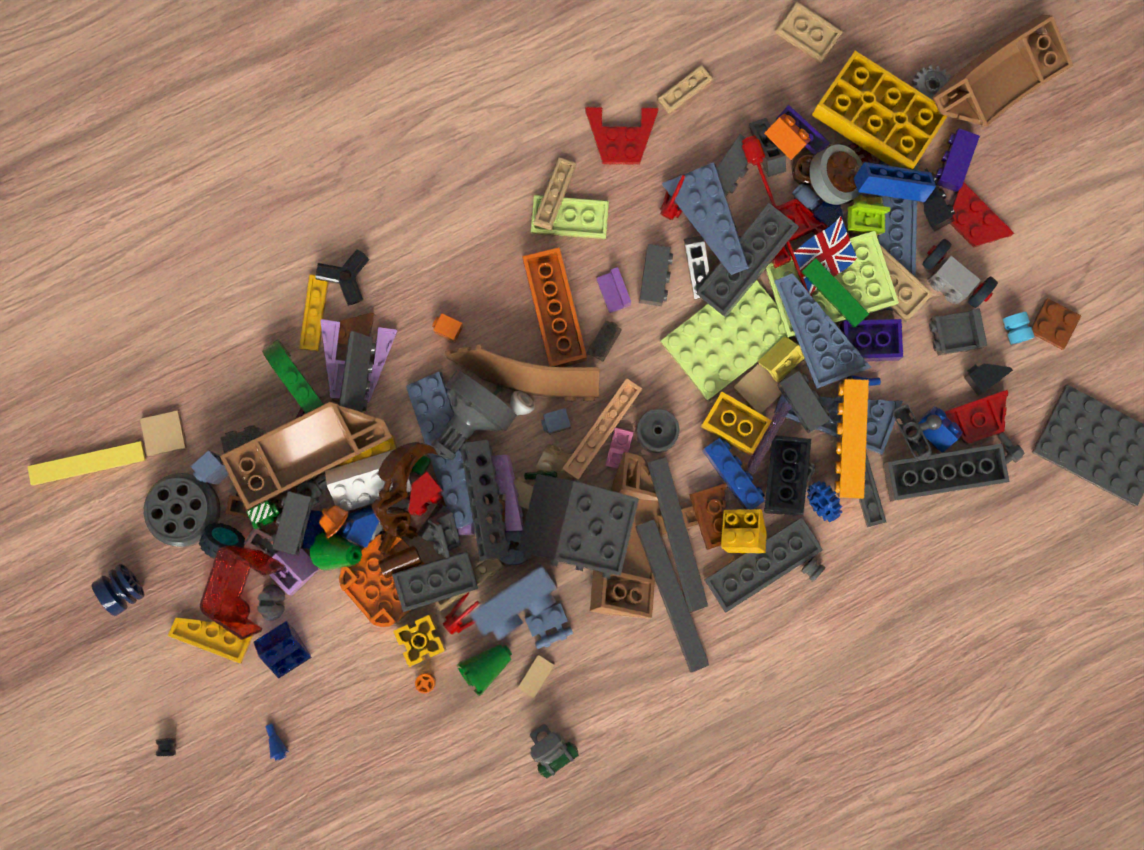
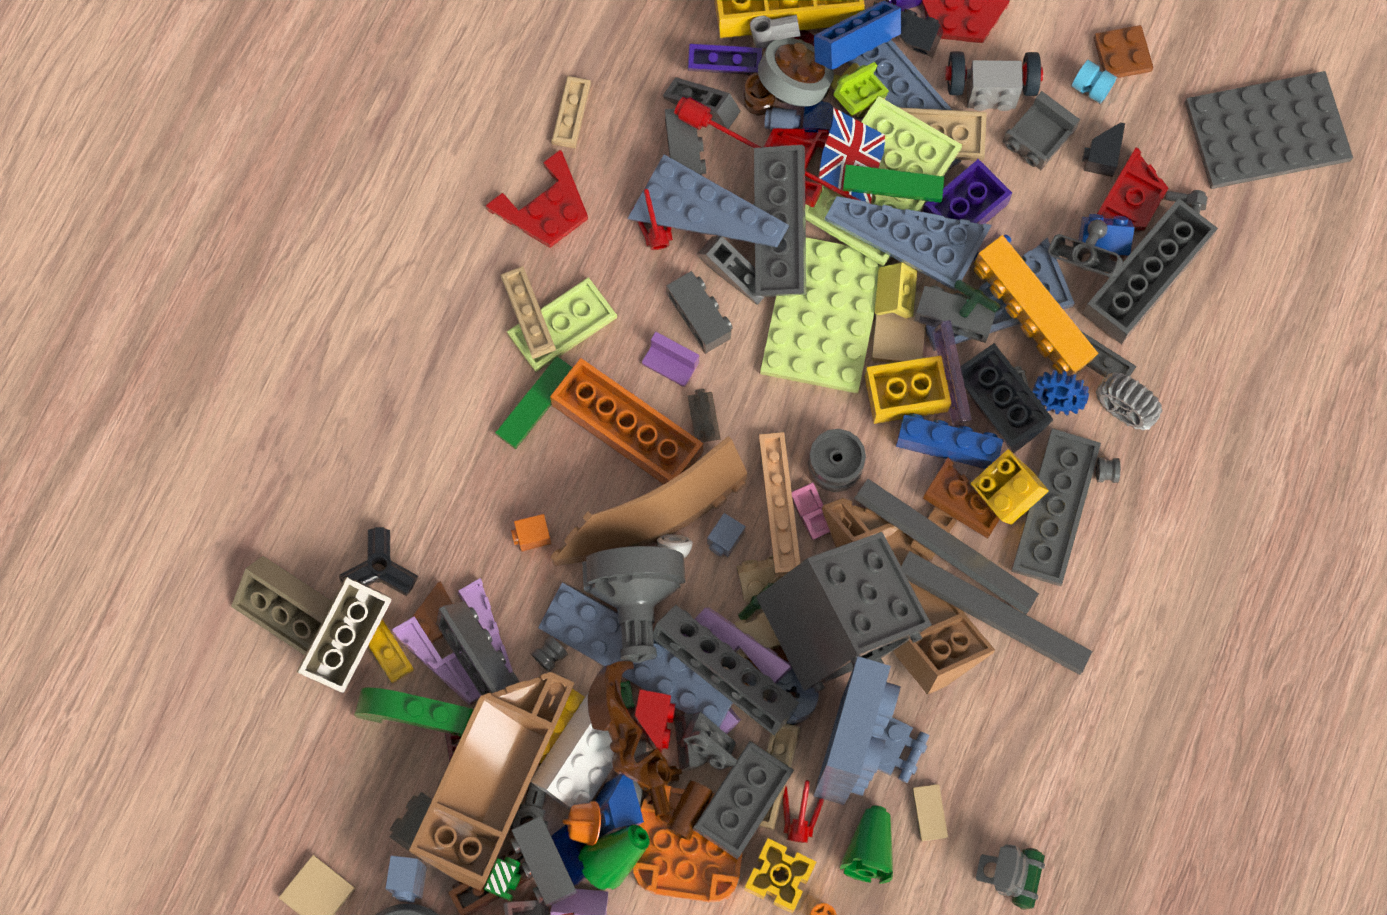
camera: 40 degrees left, 10 degrees down
(276, 257) = (281, 603): none -> dark tan slope
(291, 300) = (344, 634): none -> dark tan slope
(399, 406) = (549, 653): none -> dark grey wheel
(513, 252) = (533, 404): none -> green tile
(788, 136) = (715, 72): orange brick -> none
(822, 403) = (976, 296): none -> clear green piece
(846, 137) = (767, 30): none -> light grey piece
(860, 540) = (1129, 401): none -> light grey gear

